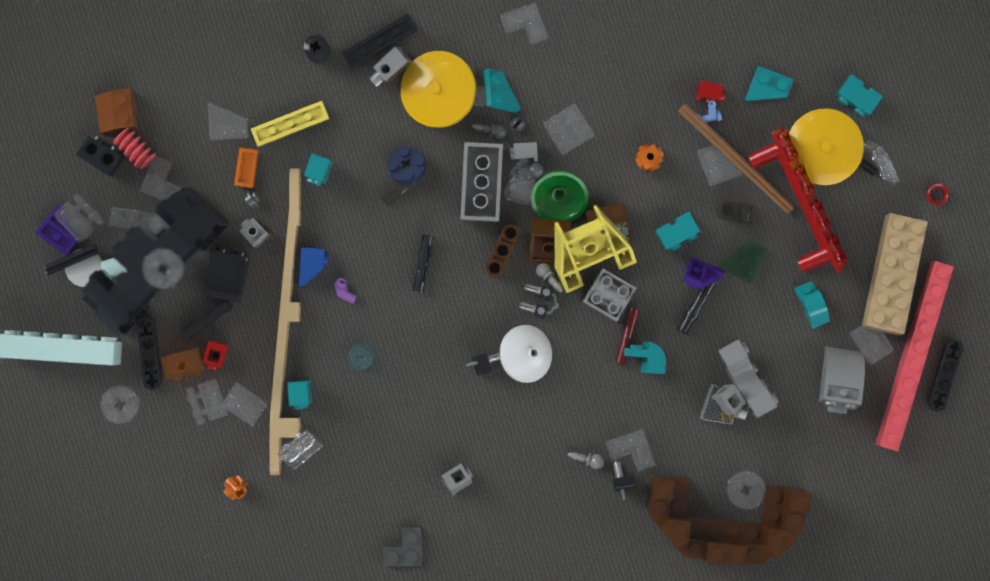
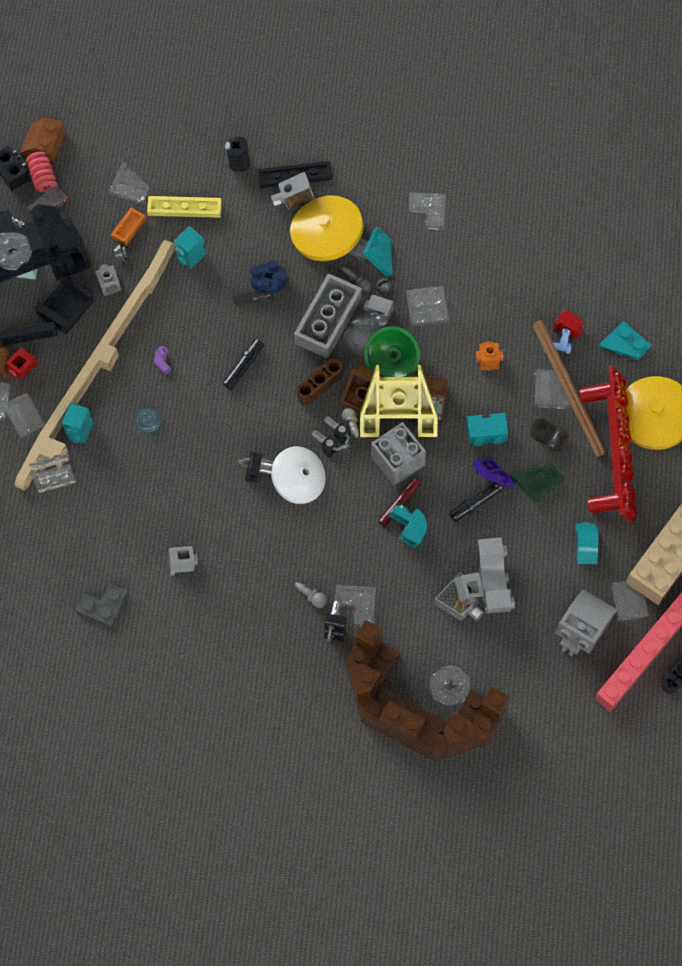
camera: 30 degrees right, 20 degrees down
(311, 264) = (144, 325): blue slope -> none

